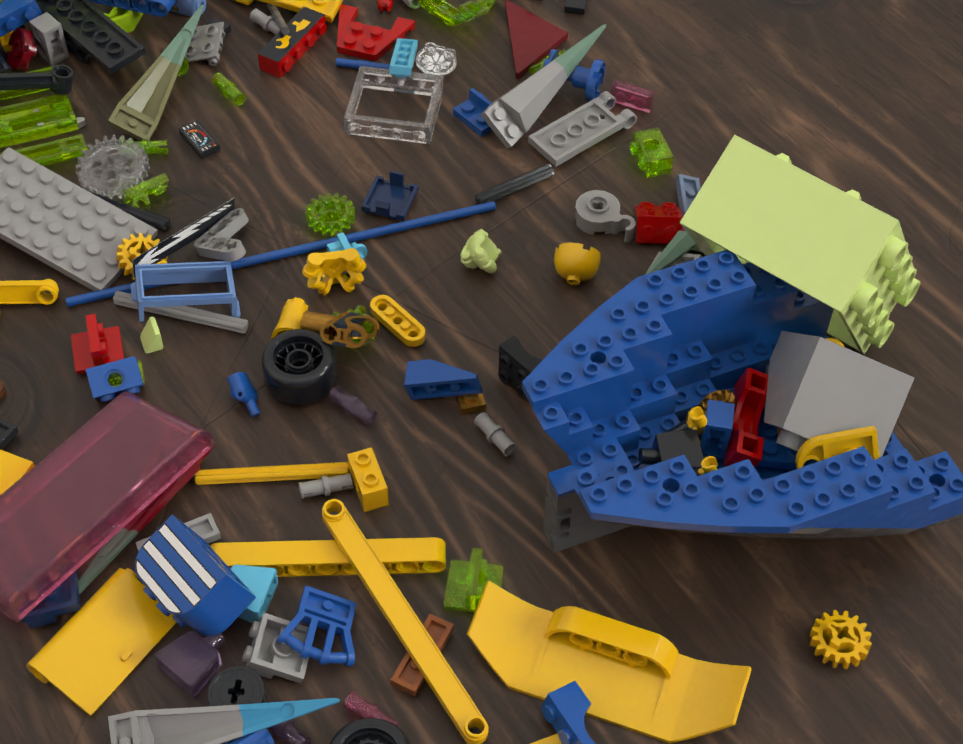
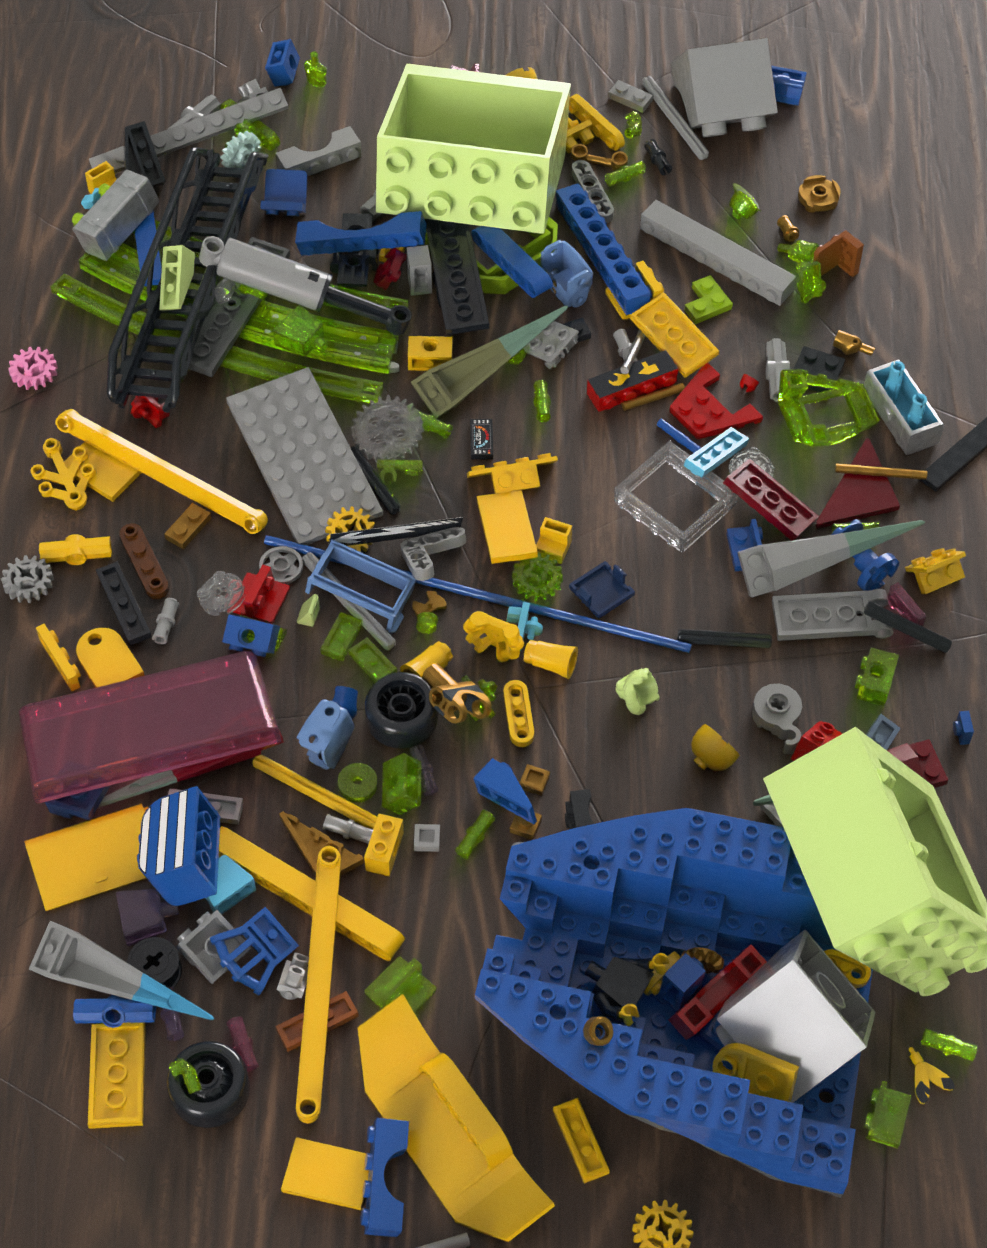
camera: 35 degrees right, 5 degrees up
(22, 411) = (165, 621): none -> light grey pin
(55, 352) = (217, 584): none -> clear plate
(100, 310) = (283, 565): none -> light grey wheel
(103, 96) = (428, 352): none -> yellow brick
(197, 341) = (341, 636): none -> clear neon green plate
(240, 346) = (371, 660): none -> clear neon green plate
(249, 153) = (514, 476): none -> yellow bracket
(251, 416) = (332, 730): none -> medium blue piece
(252, 288) = (435, 602): none -> pearl gold piece
(264, 293) = (427, 622): none -> clear neon green bush
(275, 189) = (507, 527): none -> yellow tile
(299, 437) = (353, 773): none -> clear neon green piece
(303, 515) = (311, 841): none -> pearl gold wing
(316, 47) = (652, 396): none -> pearl gold bar
(322, 178) = (554, 539): none -> yellow piece
(345, 423) = (401, 784): none -> clear neon green brick
(376, 629) = (294, 977): none -> light grey hips
(391, 264) = (551, 657): none -> yellow plant
(398, 454) = (427, 837): none -> light grey plate
(437, 430) = (475, 834): none -> clear neon green pin
(451, 358) = (534, 779): none -> pearl gold tile
(473, 70) = (771, 499): none -> dark red plate
(535, 16) = (881, 471): none -> pearl gold bar
(632, 59) = (938, 569): none -> yellow bracket
(648, 107) = (907, 627): none -> black axle
(715, 482) = (589, 1031): none -> pearl gold piece
(716, 612) = (581, 1140): none -> yellow tile
(919, 442) = (888, 1116): none -> clear neon green bracket
(923, 373) = (949, 1044): none -> clear neon green pin
(923, 407) = (926, 1072): none -> yellow piece

